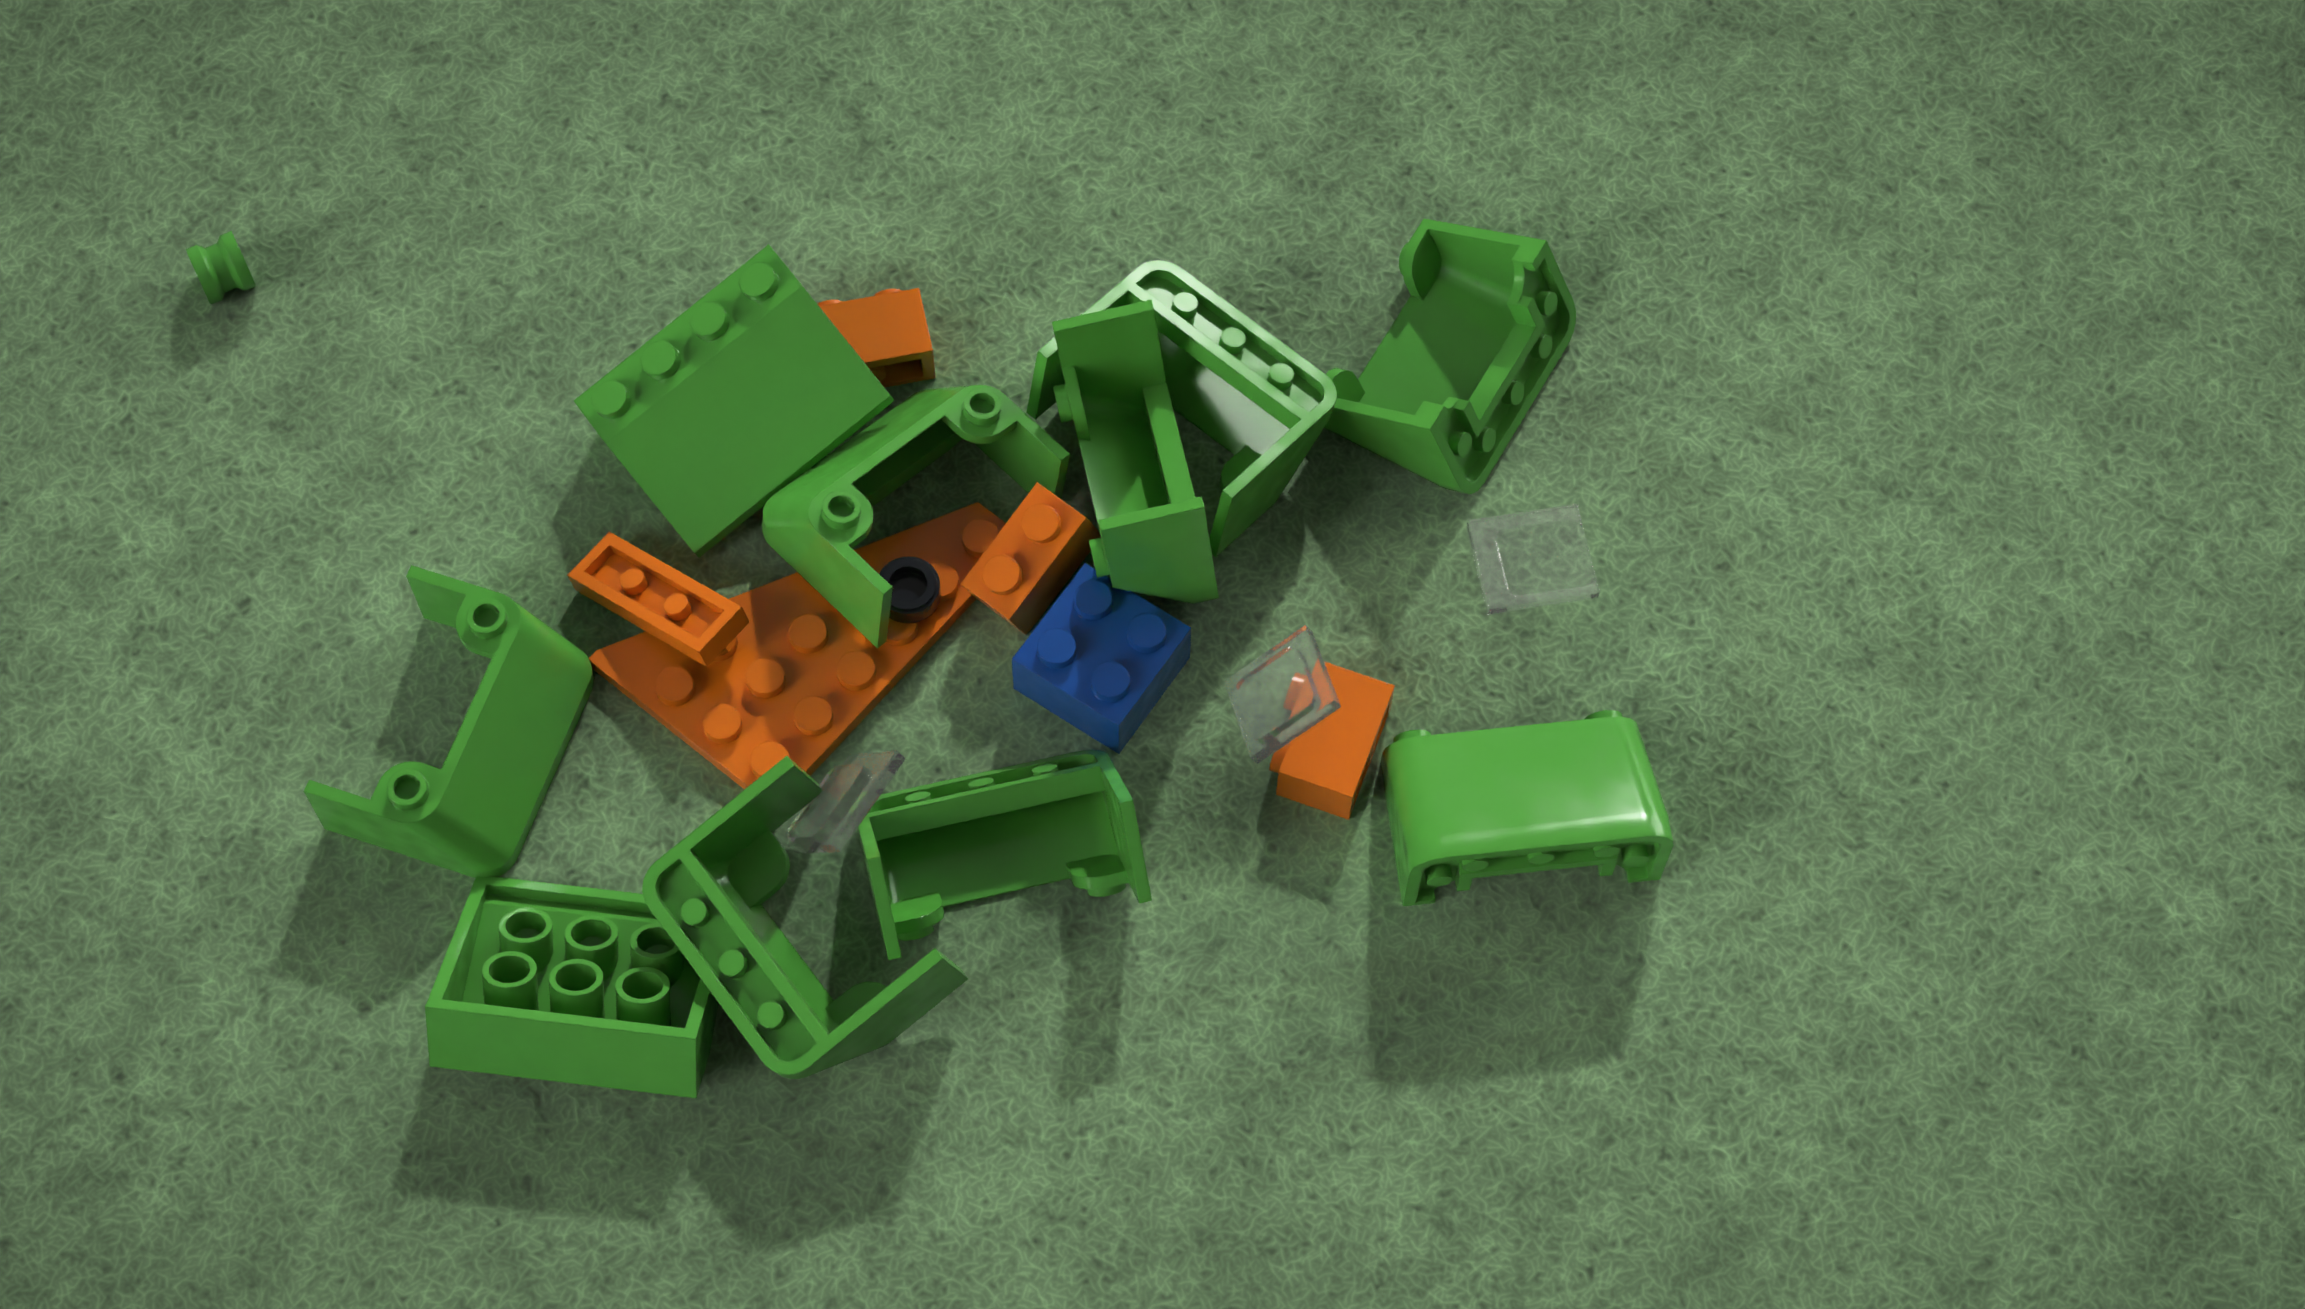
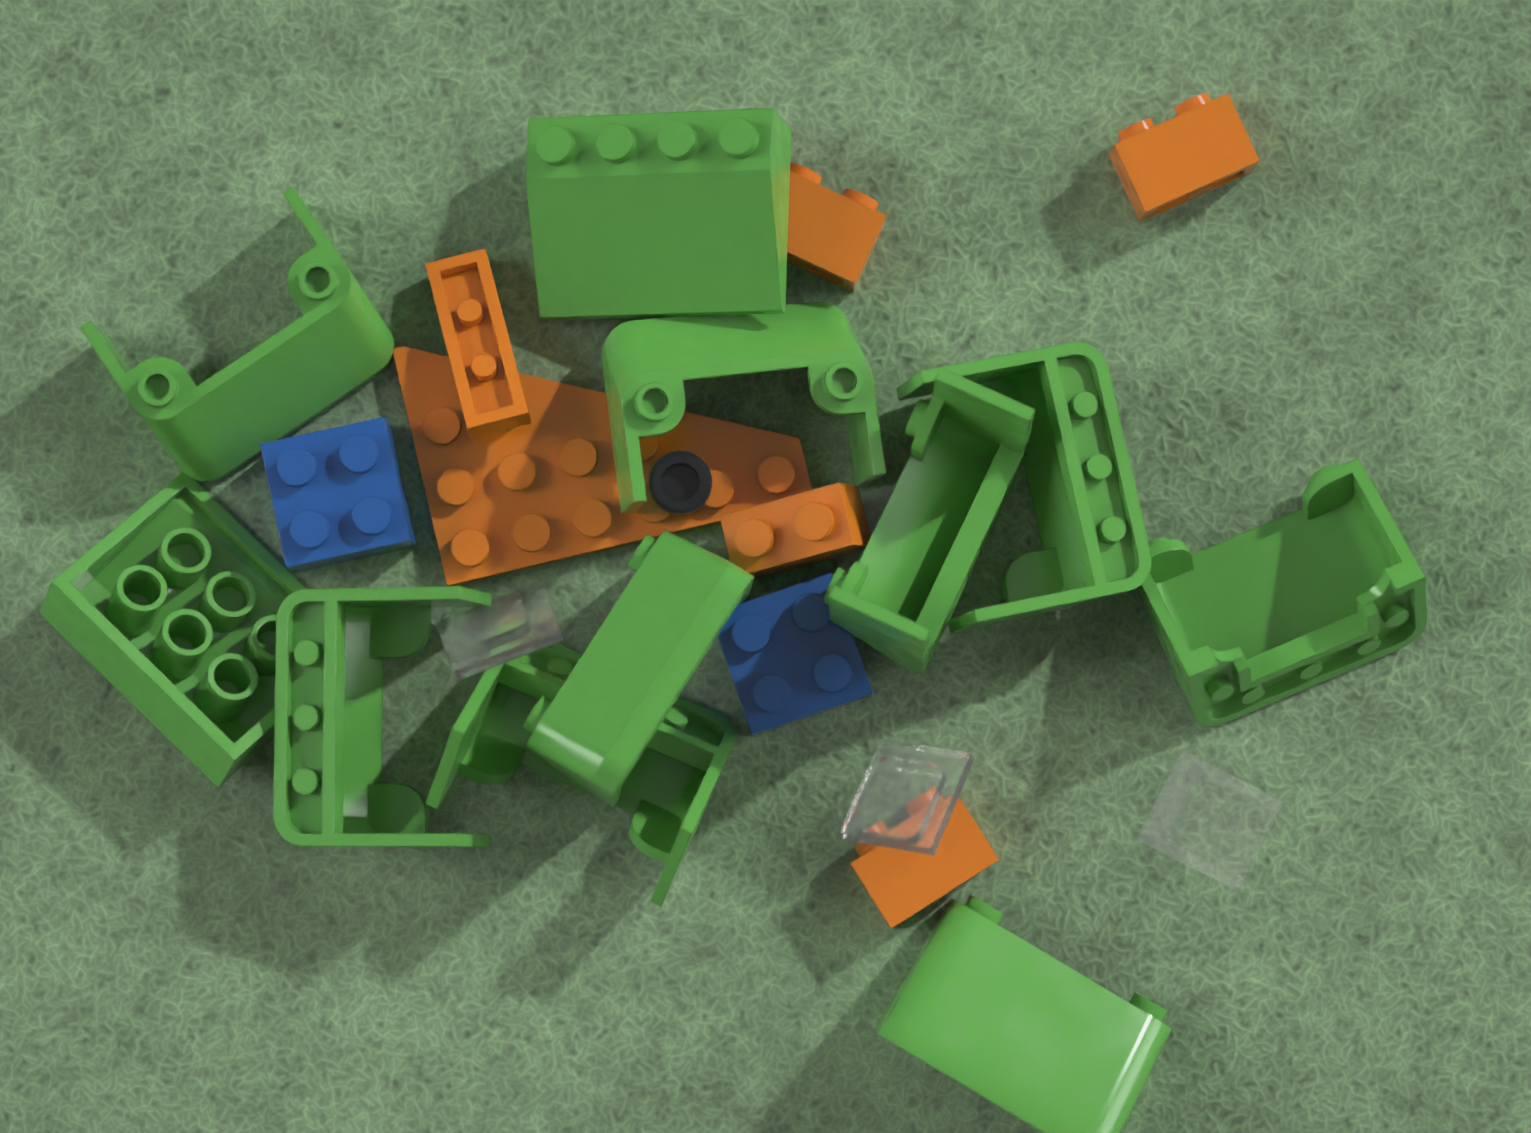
camera: 35 degrees right, 20 degrees up
(626, 792) = (338, 495): none -> blue brick
(984, 737) = (636, 664): none -> bright green windscreen
(1114, 112) = (1182, 155): none -> orange brick

